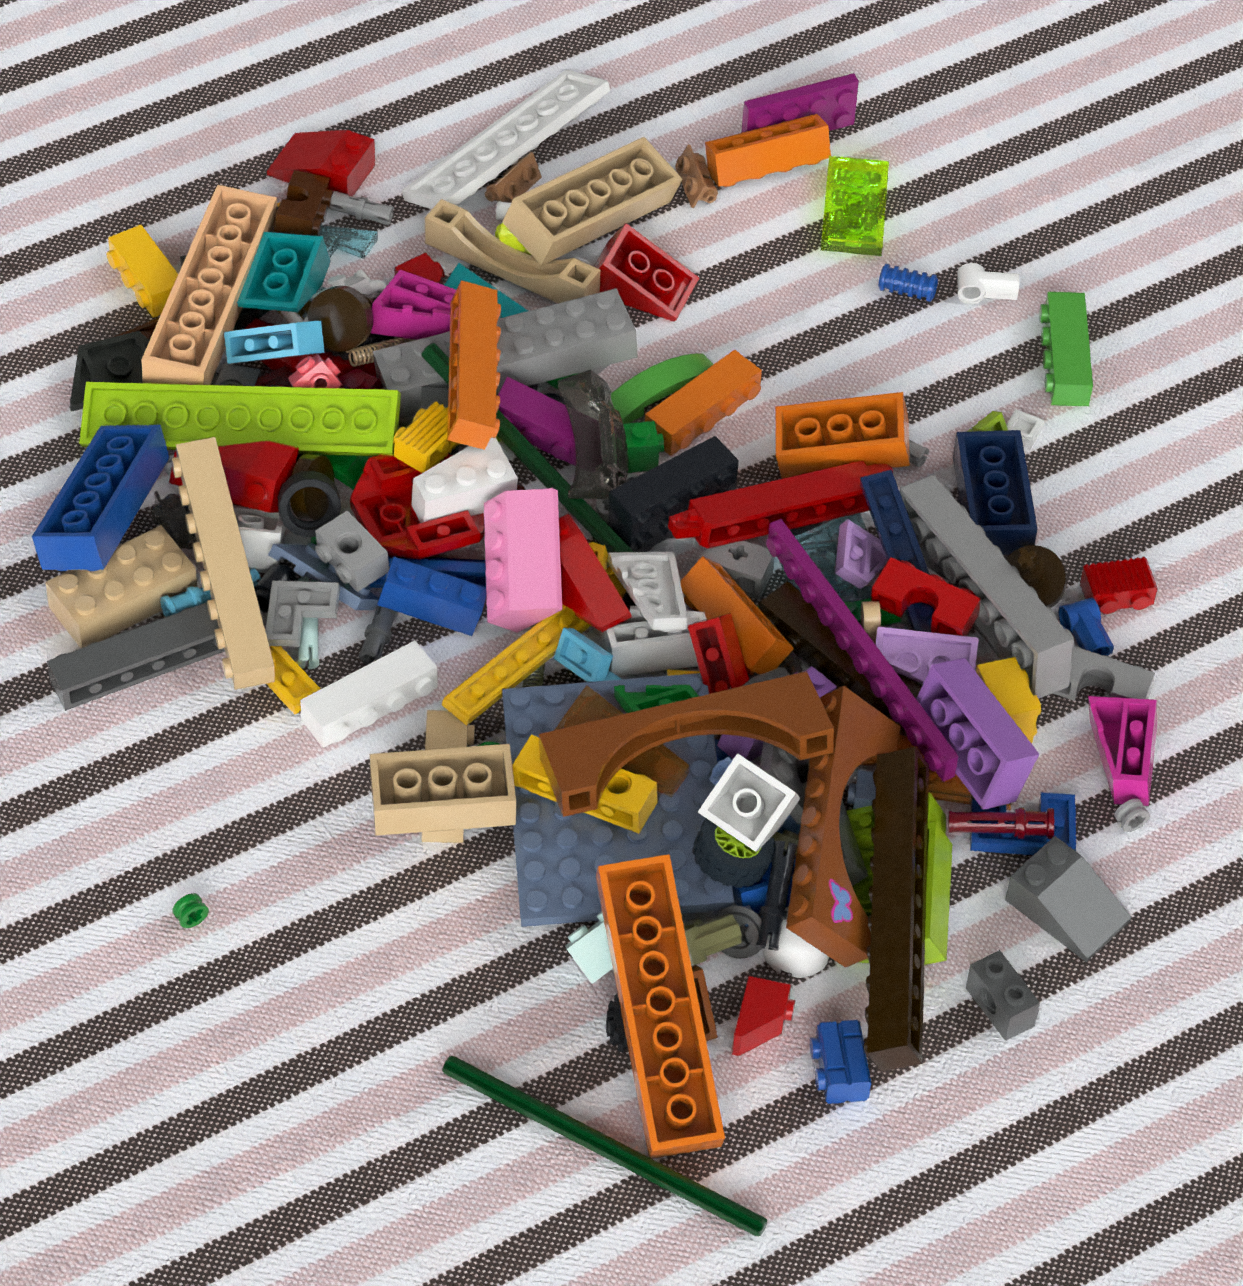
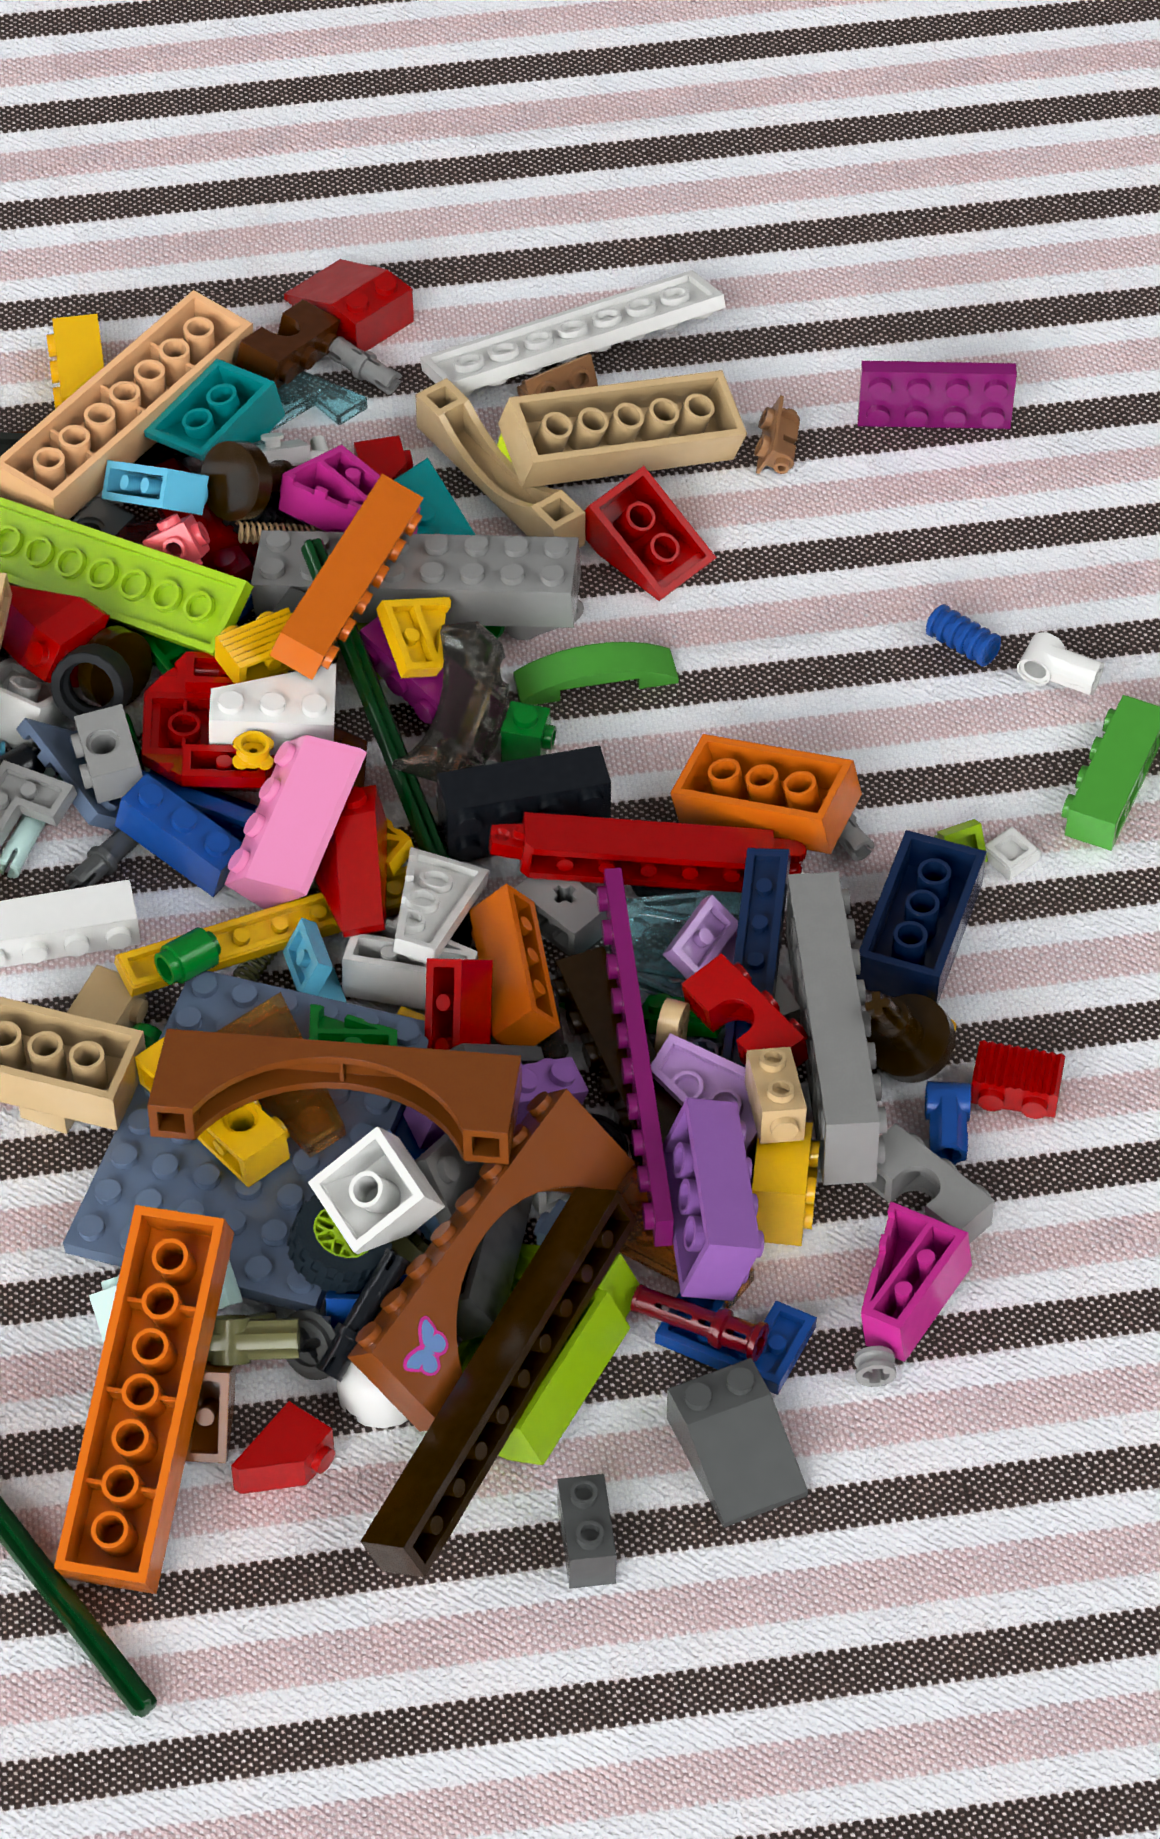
camera: 25 degrees right, 0 degrees up
(464, 516) = (253, 751): none -> yellow plate
(501, 681) = (187, 956): none -> green brick
(537, 394) = (414, 633): none -> yellow wing
(705, 401) = (633, 704): orange brick -> none
(768, 150) = (876, 429): orange brick -> none
(842, 1062) = (338, 1557): blue brick -> none
(855, 206) = (950, 525): clear neon green plate -> none
(985, 644) = (775, 1095): none -> tan brick

